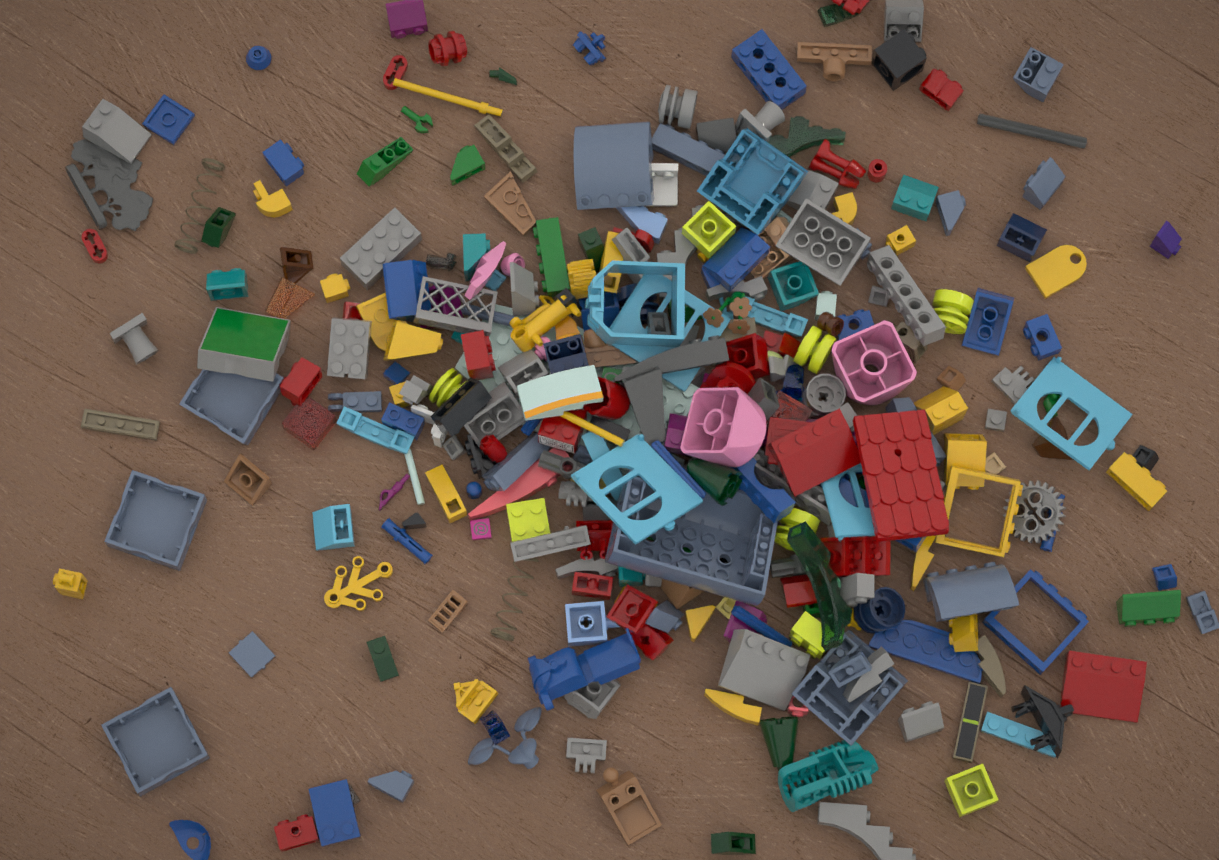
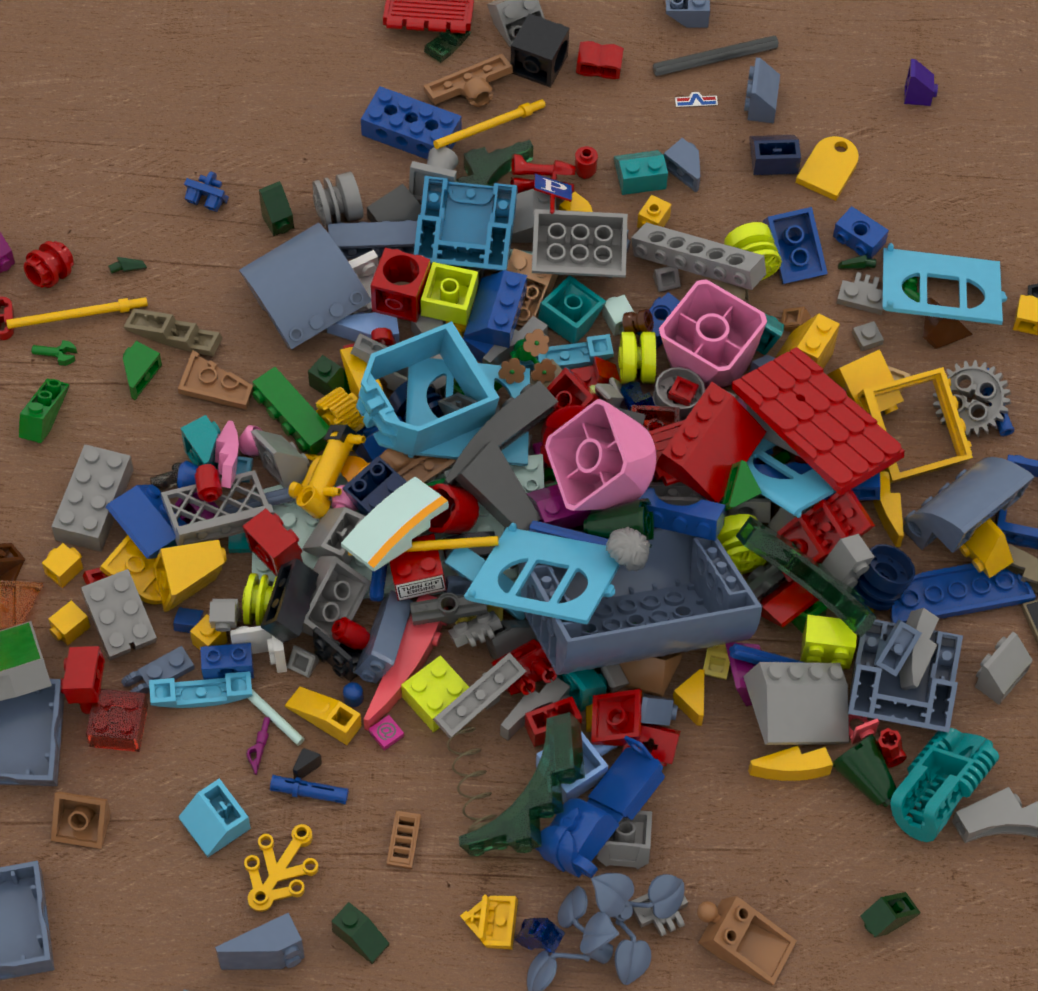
camera: 30 degrees left, 15 degrees down
(315, 333) = (68, 623): none -> yellow brick
(319, 635) = (265, 947): none -> sand blue slope
(452, 271) = (186, 474): none -> blue cone
(457, 287) = (208, 483): none -> red brick
(548, 638) = (542, 797): none -> clear green arch
(553, 735) = (612, 898): none -> sand blue plant
(630, 91) = (276, 209): none -> dark green slope
(671, 219) = (399, 300): none -> red brick
(701, 502) = (628, 548): none -> light grey hair
(806, 733) = (891, 747): none -> red piece
(815, 495) = (740, 486): none -> green slope
(828, 395) = (683, 391): none -> red tile
(835, 183) = (552, 188): none -> piece
(859, 102) = (522, 111): none -> yellow bar
(923, 380) = (771, 334): none -> teal slope
(995, 160) = (696, 99): none -> sticker
(1027, 359) = (857, 263): none -> dark green bar

